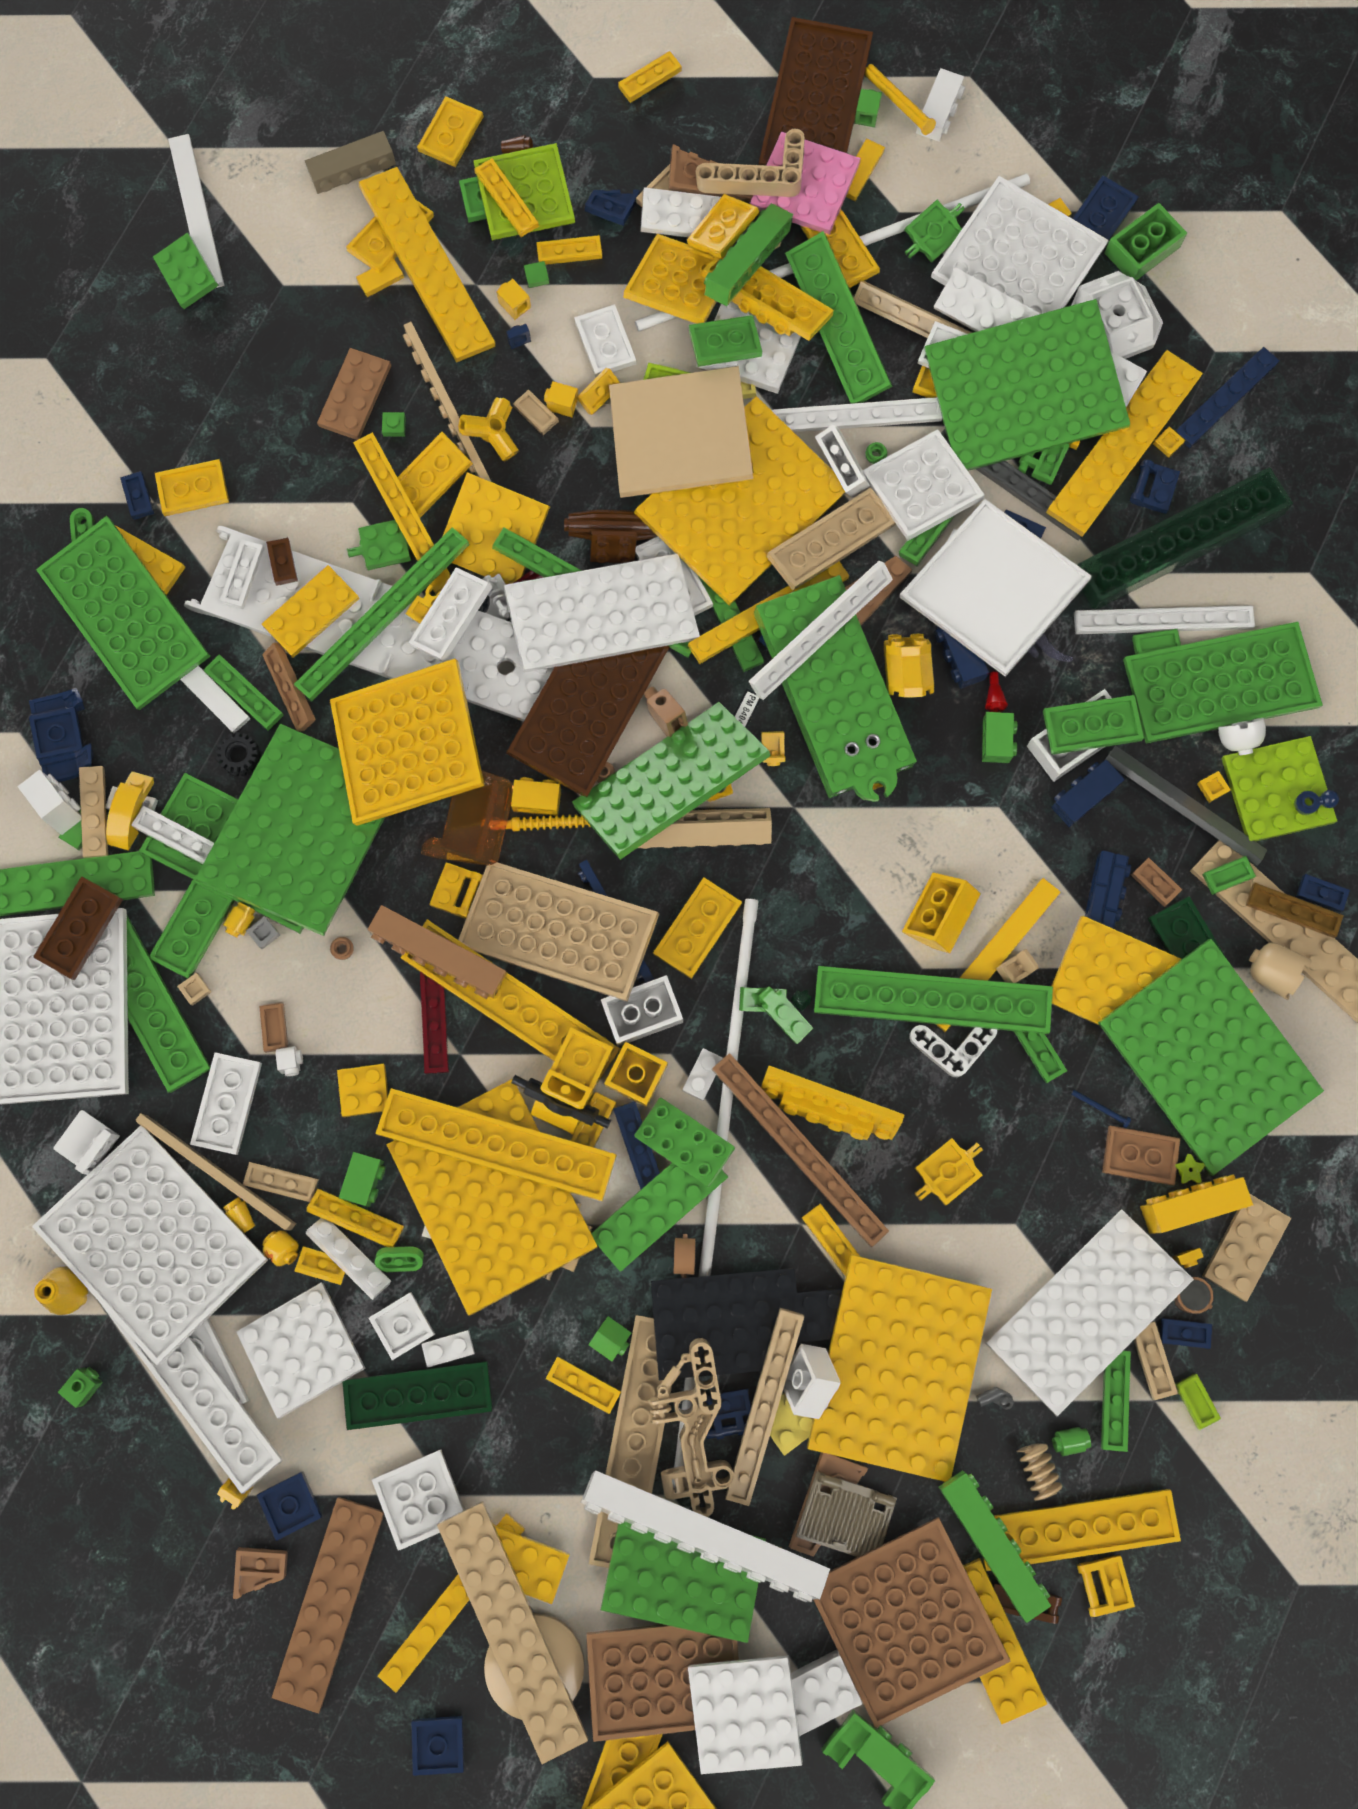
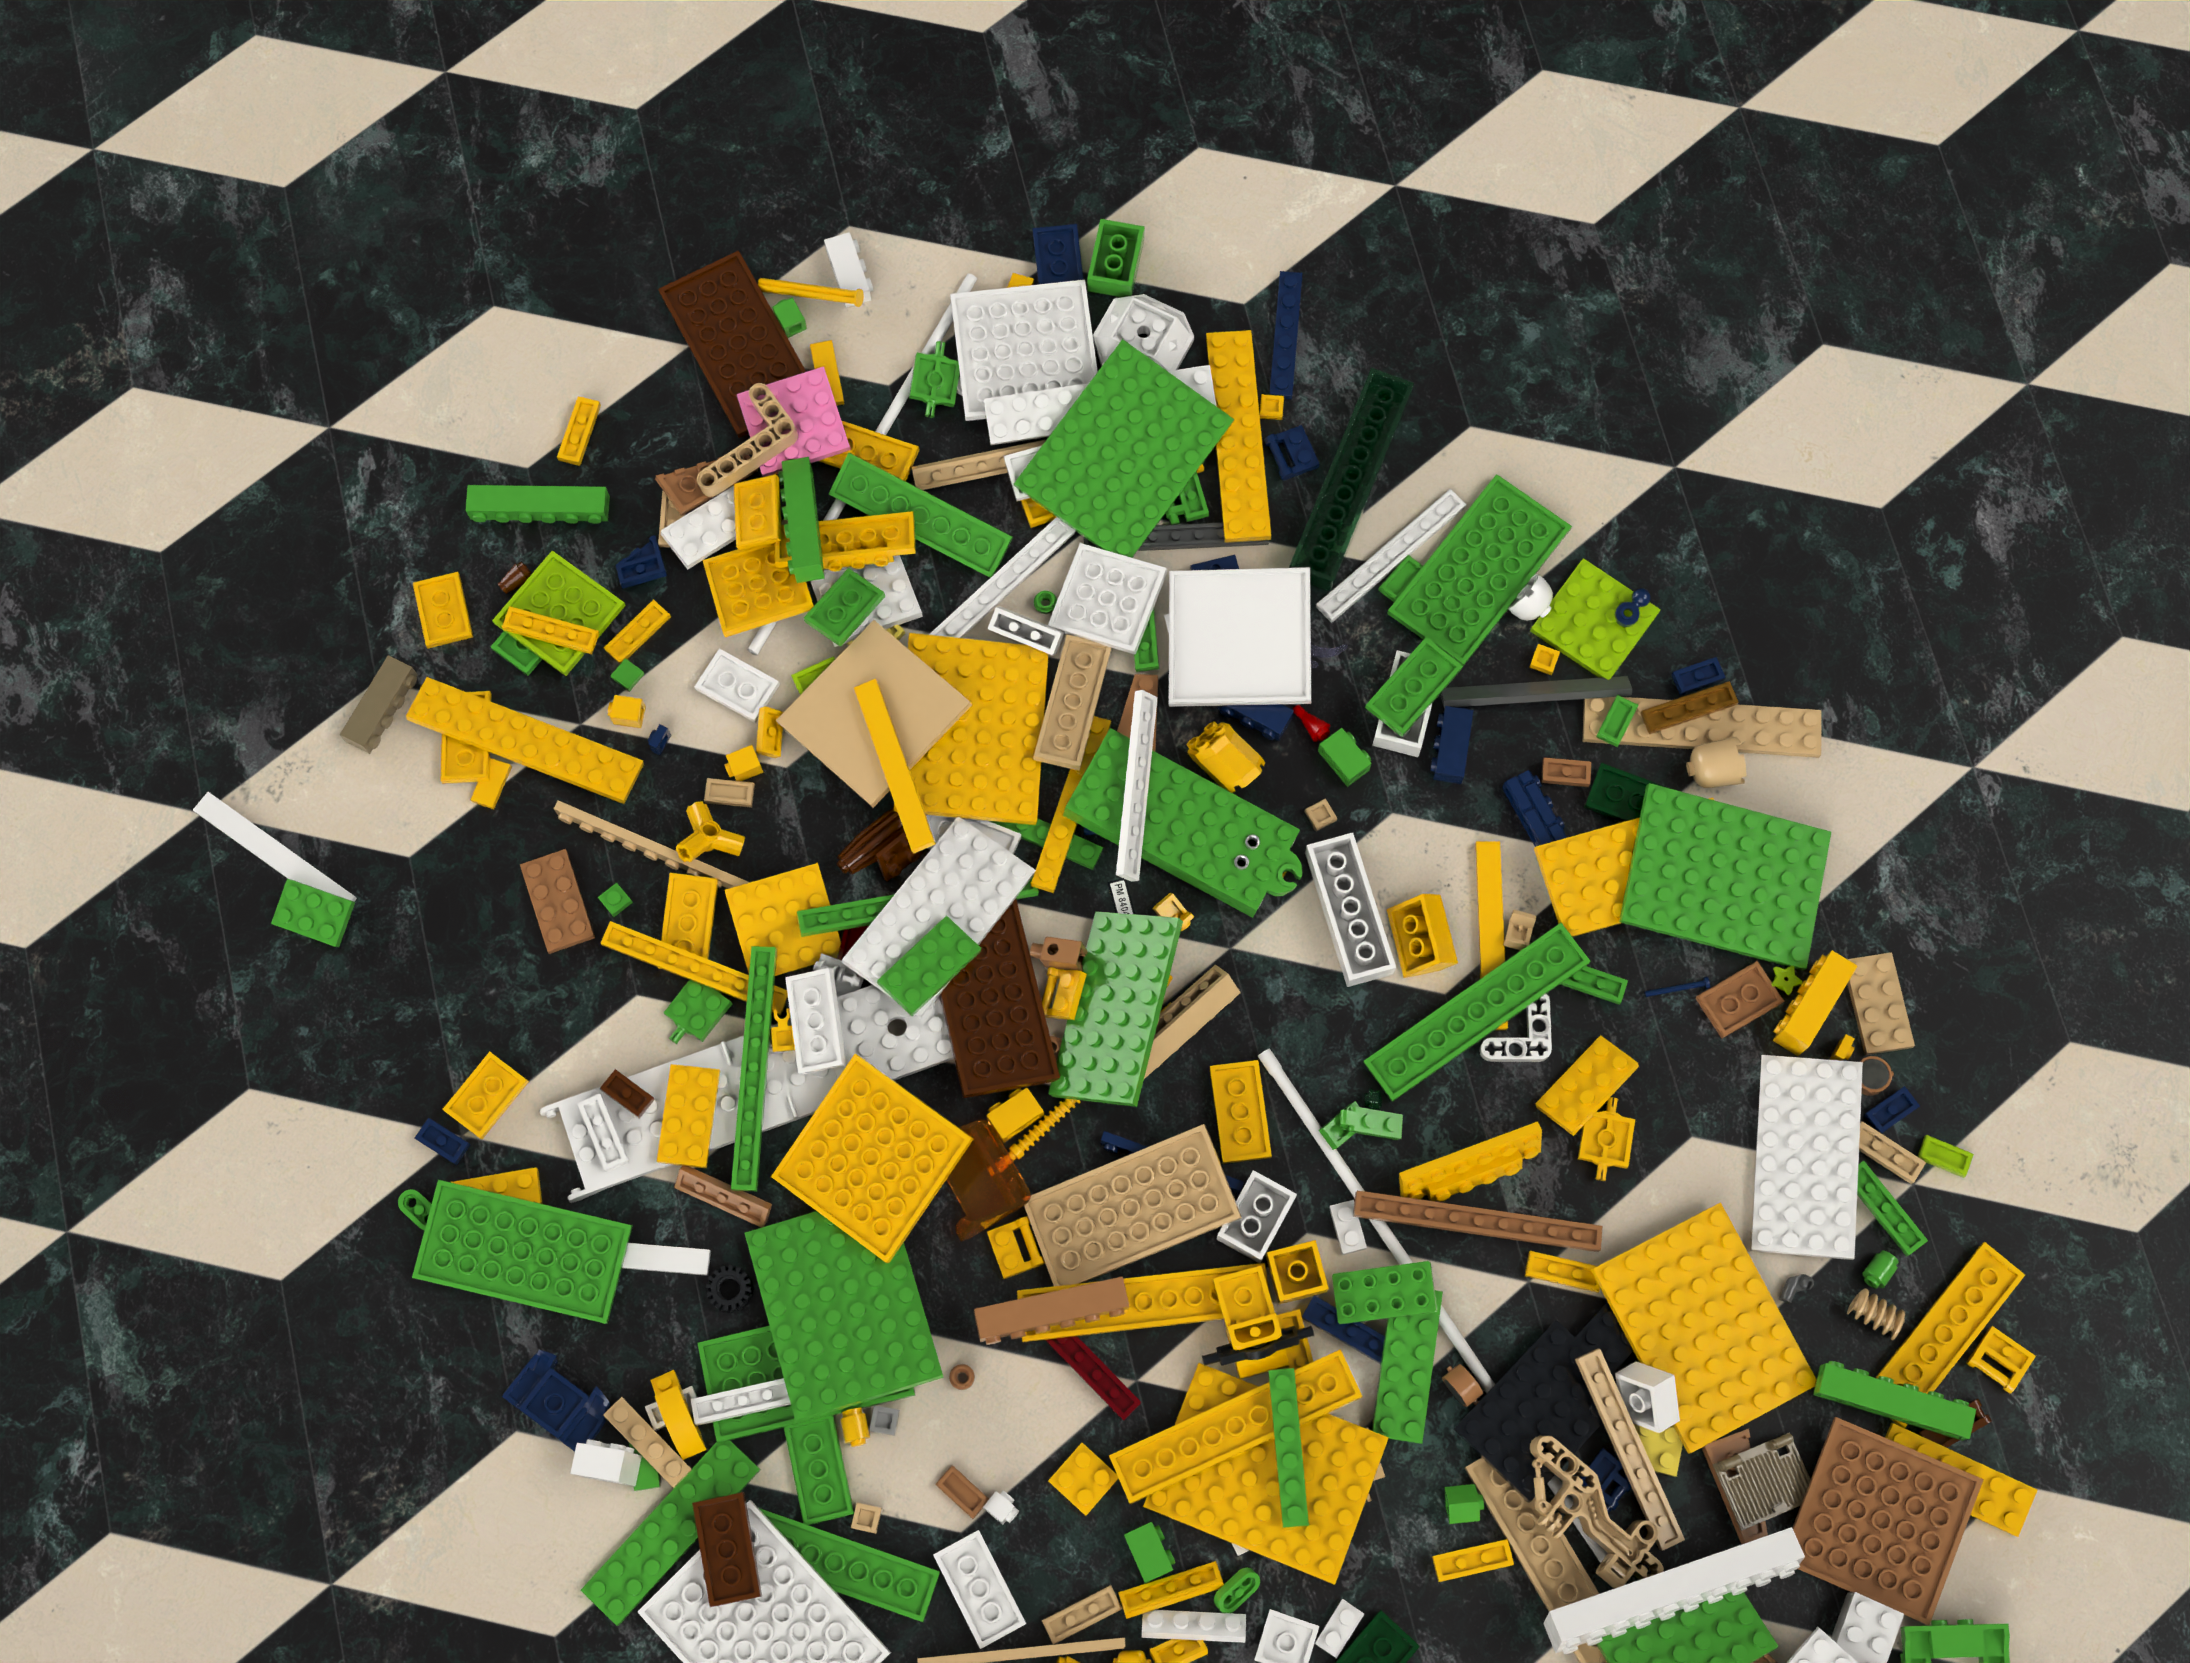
camera: 40 degrees left, 5 degrees down
(243, 692) = (687, 1233): bright green plate -> none
(517, 1191) = (1288, 1447): none -> bright green plate
(560, 639) = (929, 966): none -> bright green plate
(577, 106) = (537, 503): none -> bright green brick
(644, 743) = (1067, 993): none -> yellow plate
(659, 478) = (894, 766): none -> yellow tile
(903, 849) = (1350, 909): none -> white brick
(944, 765) = (1320, 814): none -> tan tile
(968, 1120) = (1587, 1085): none -> yellow plate

